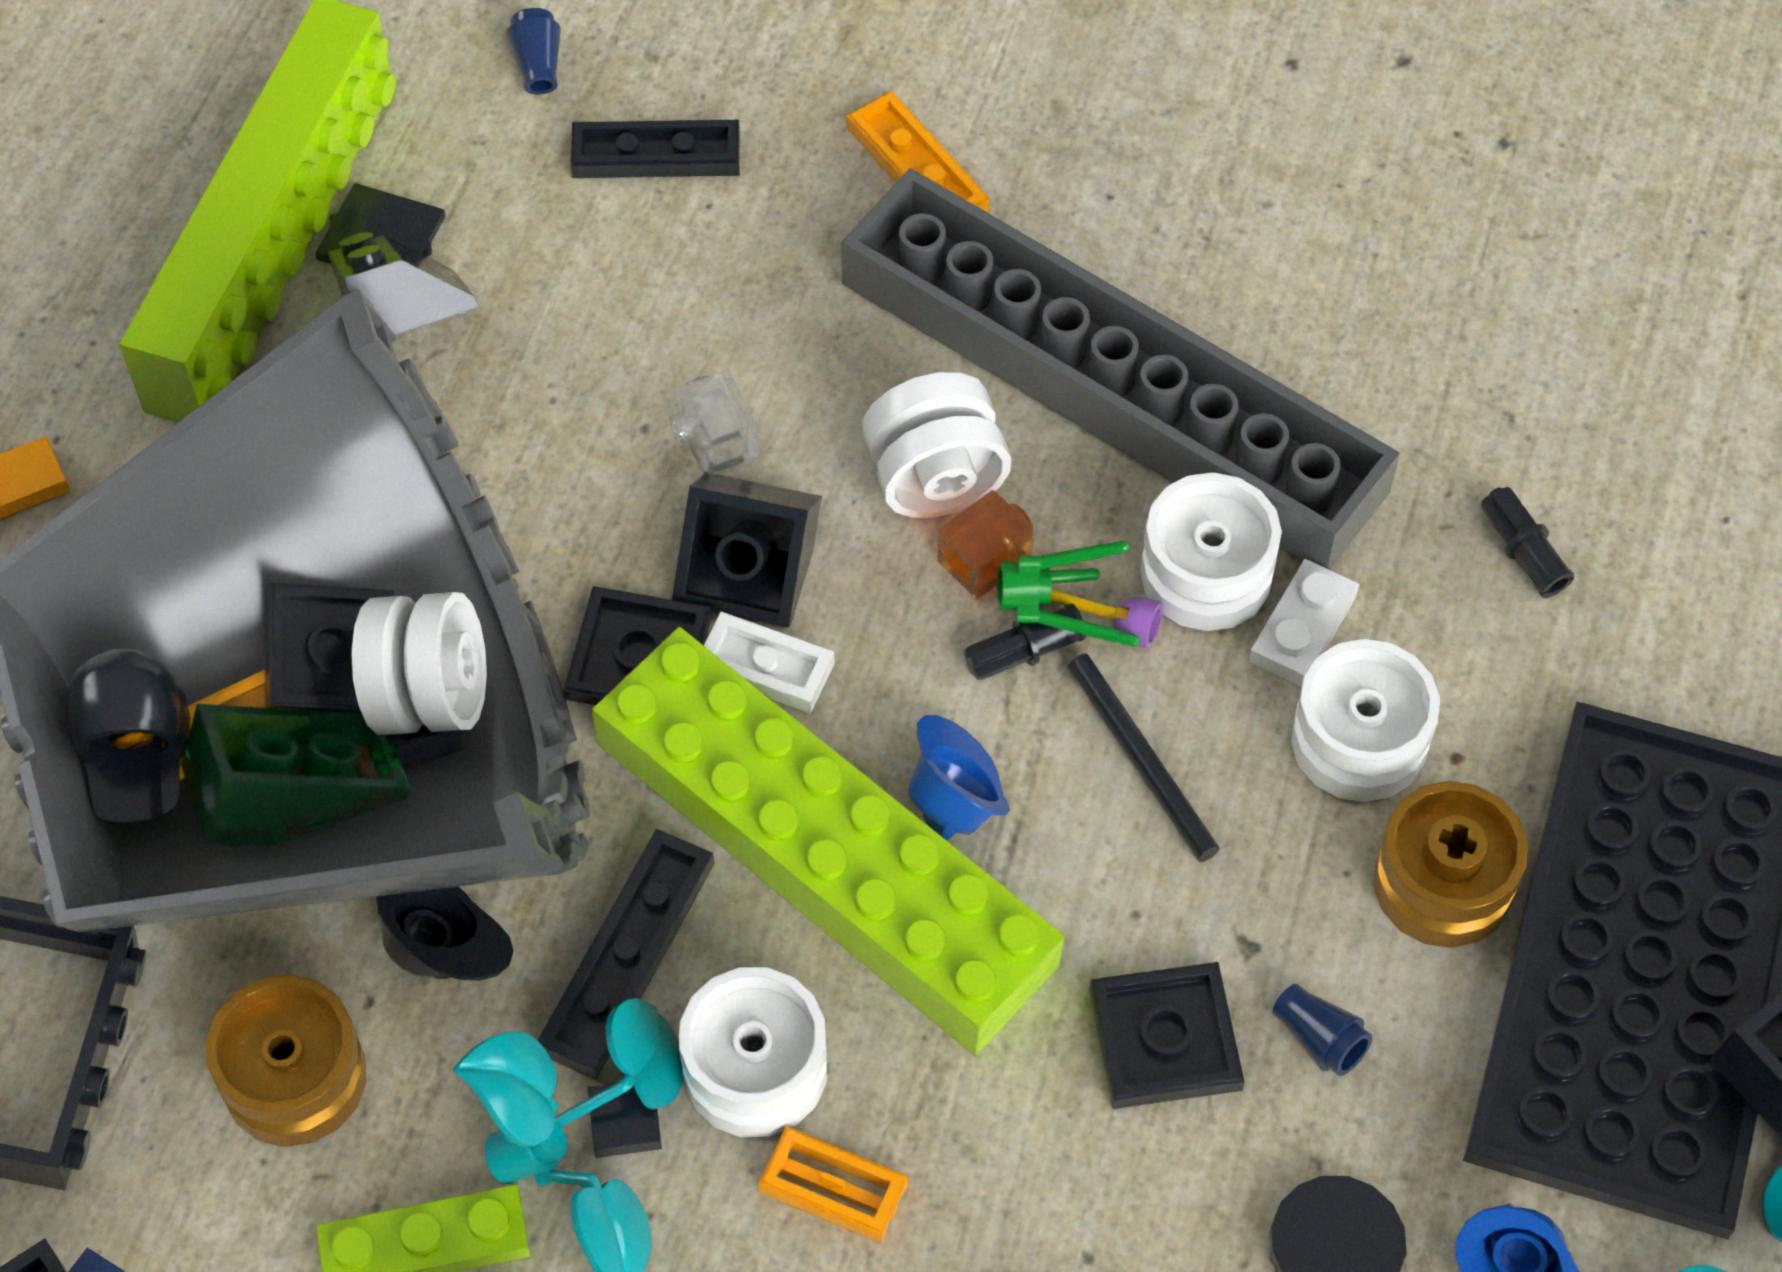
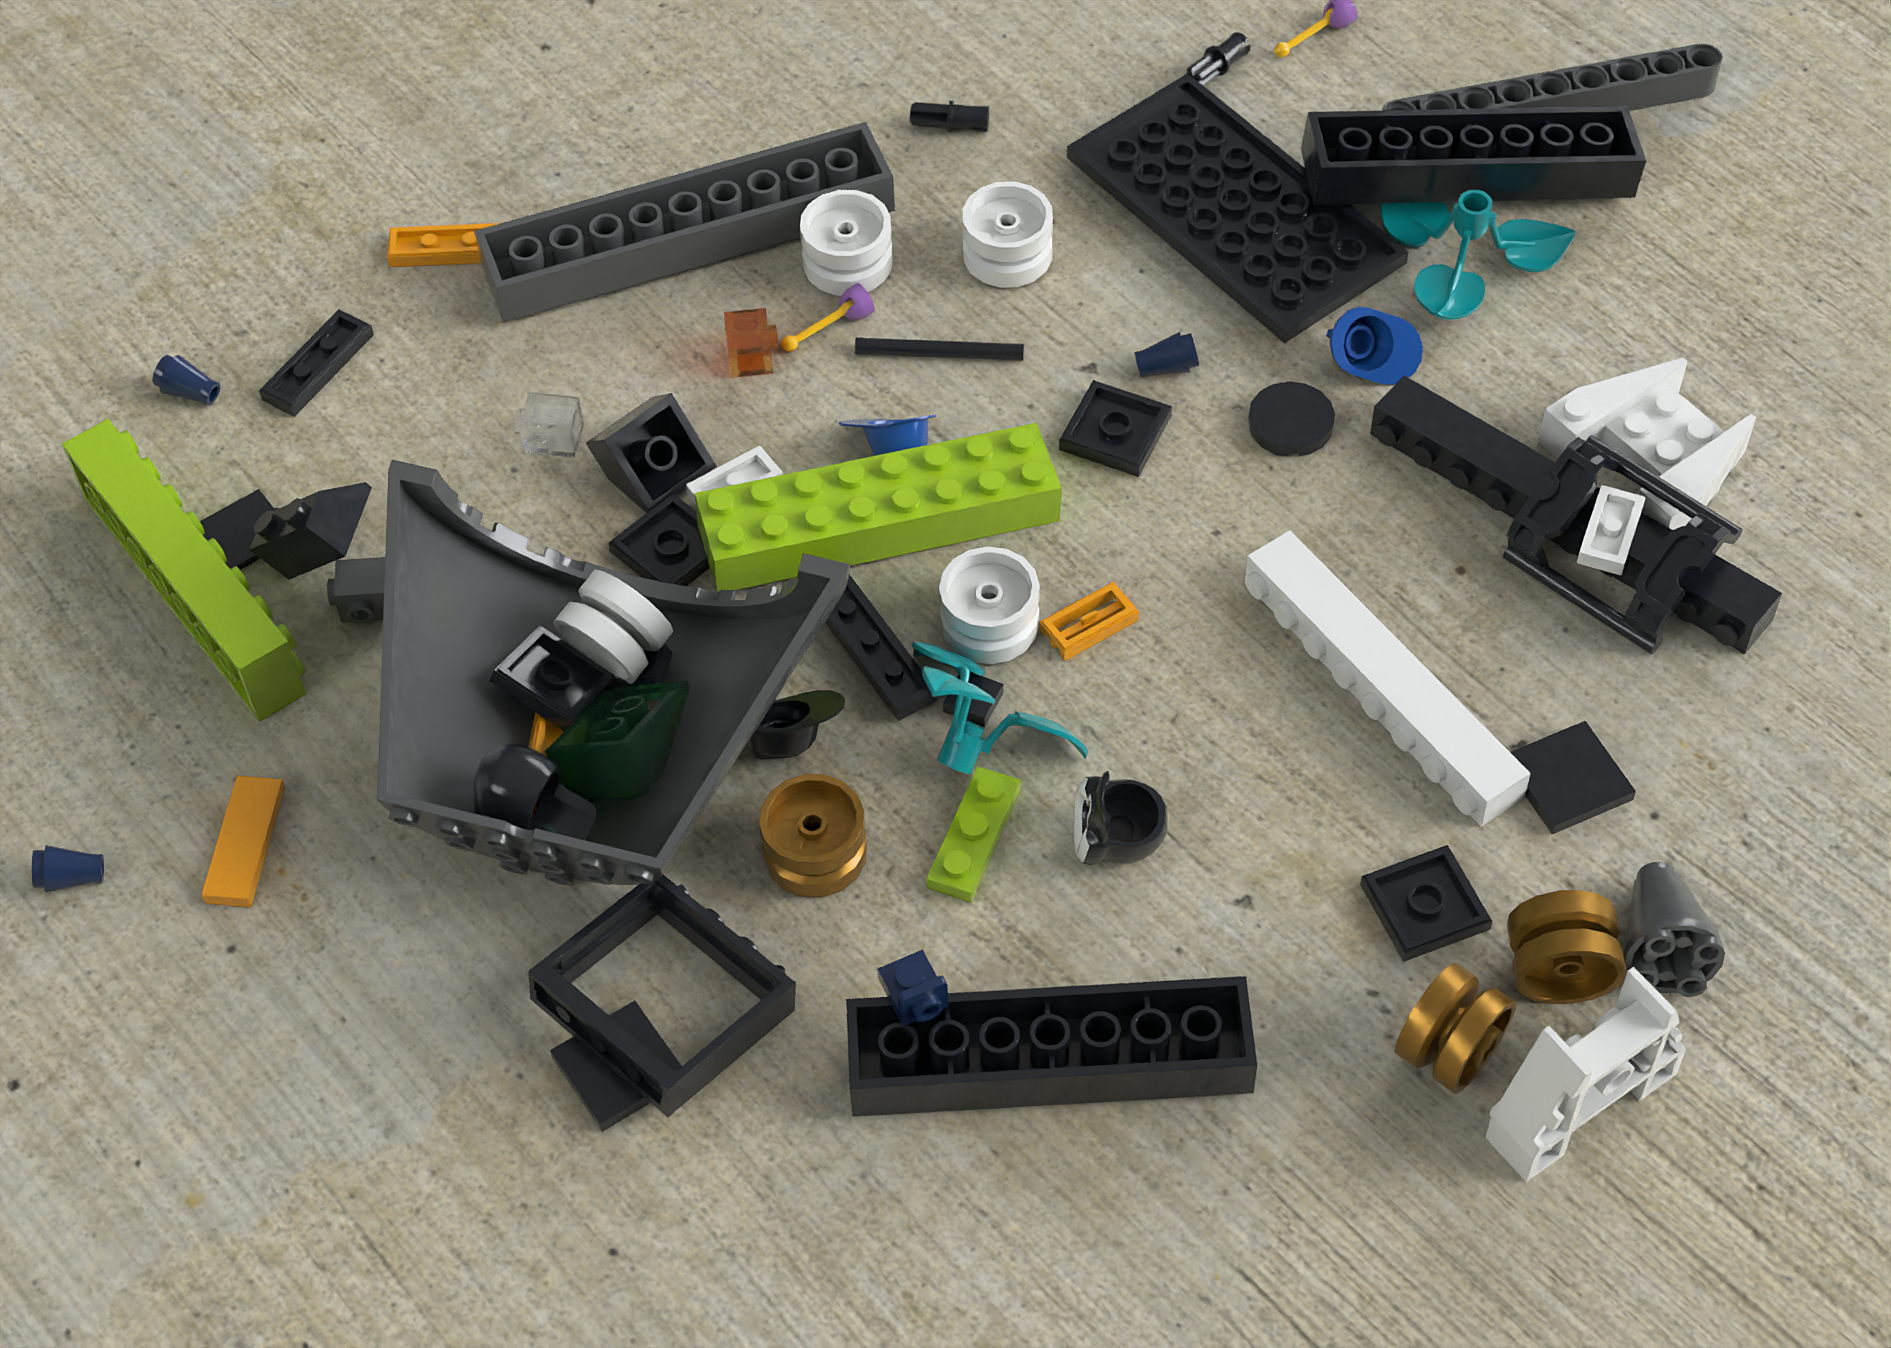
camera: 55 degrees left, 5 degrees down
(936, 444) = (672, 321): white wheel -> none
(1019, 645) = (825, 359): black axle -> none
(1029, 583) = (801, 327): green plant -> none
(1303, 622) = (919, 237): white plate -> none
(1450, 864) = (1120, 247): pearl gold wheel -> none

